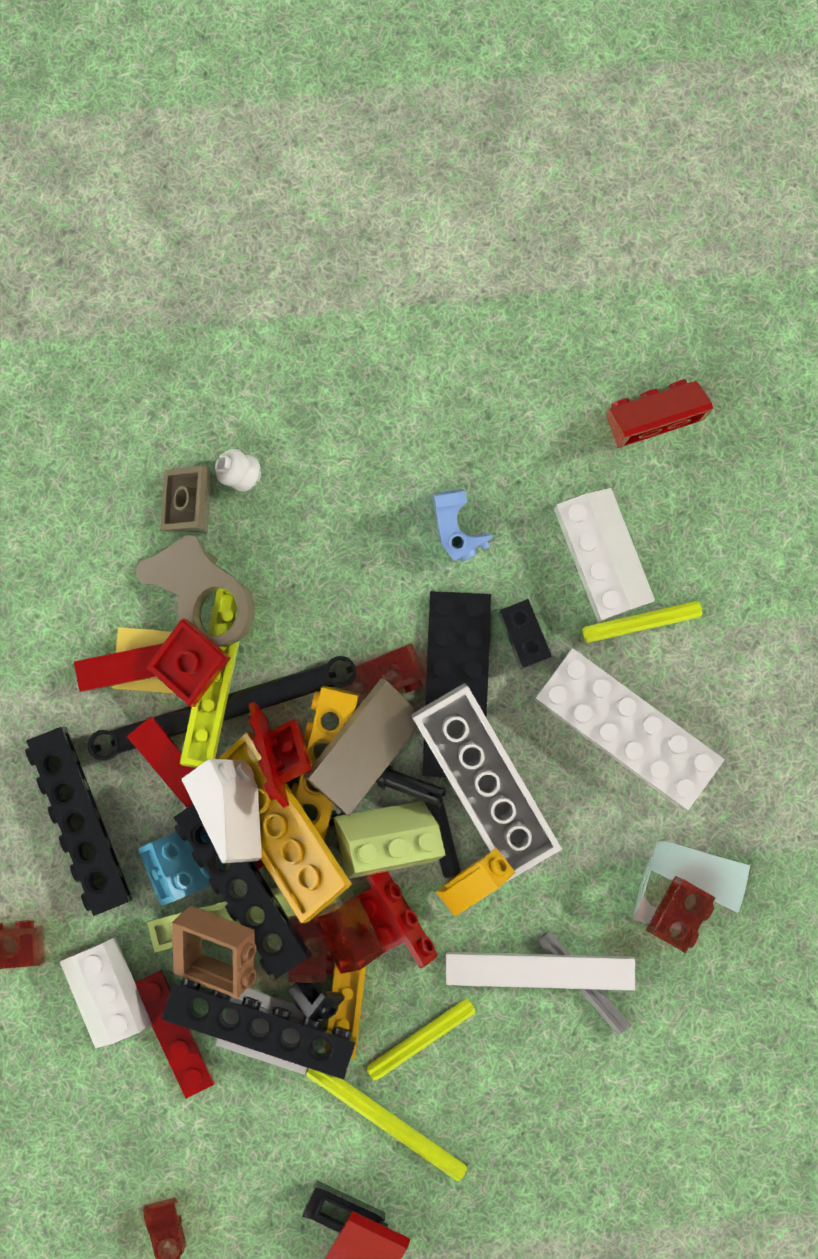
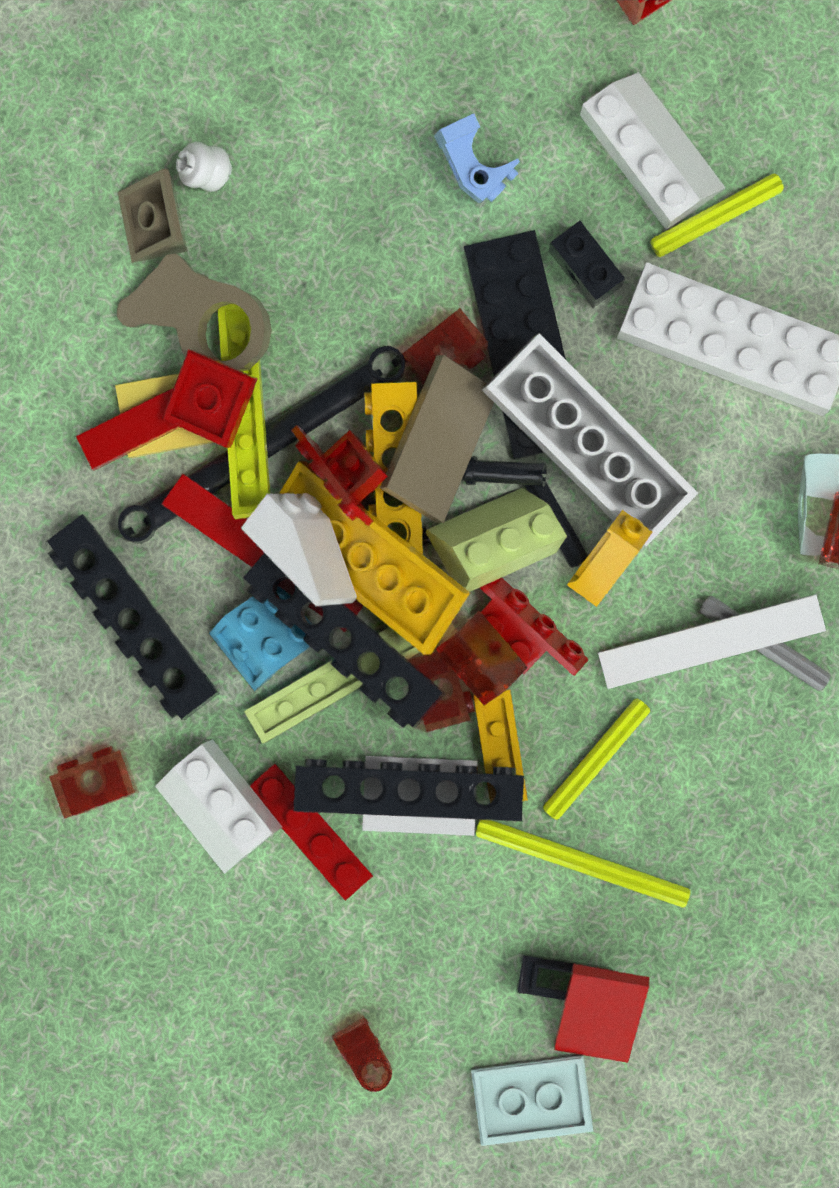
camera: 15 degrees left, 0 degrees up
(190, 962) = (300, 724): medium nougat window -> none
(314, 1002) = (464, 749): black bracket -> none

